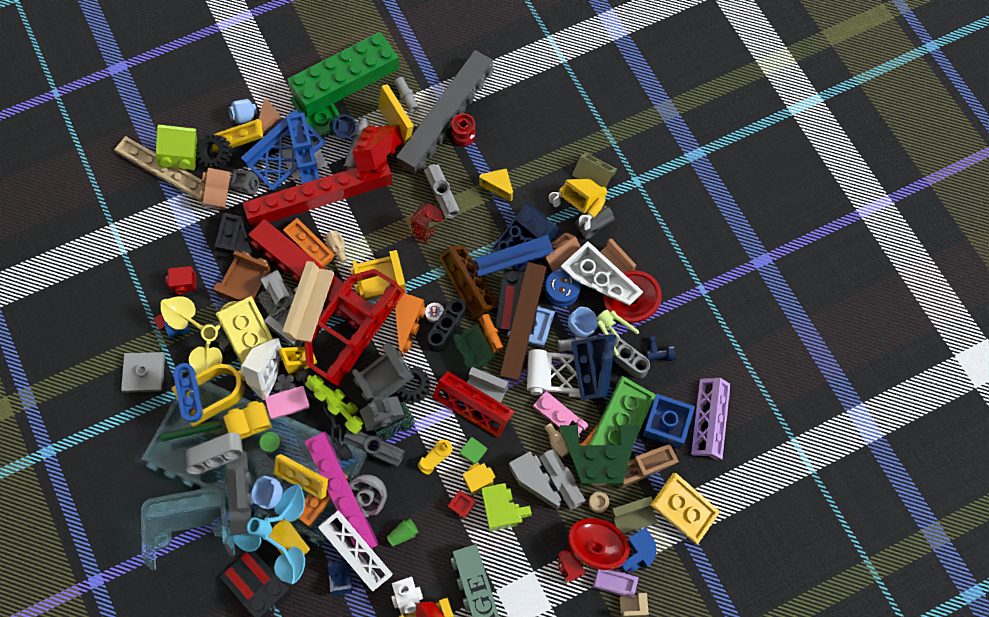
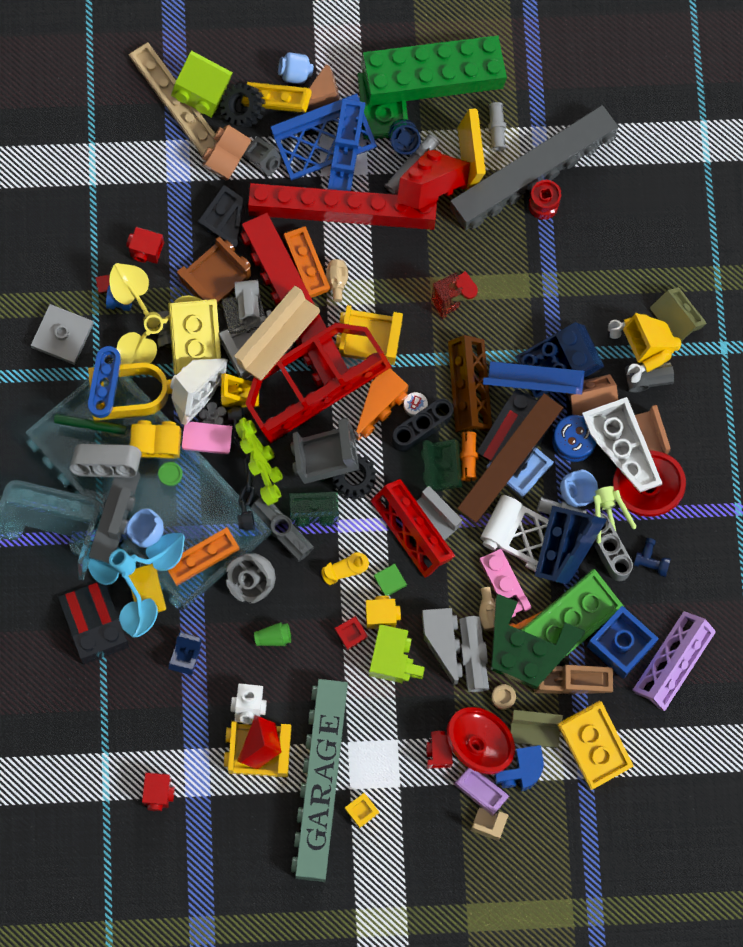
camera: 20 degrees right, 5 degrees up
(298, 474) = (187, 523): yellow tile -> none
(339, 488) = (224, 563): dark pink arch -> none
(350, 553) = (208, 632): white fence -> none
(381, 412) = (306, 494): dark grey hinge -> none
(445, 200) = (486, 251): light grey piece -> none
(498, 183) = (556, 281): yellow slope -> none

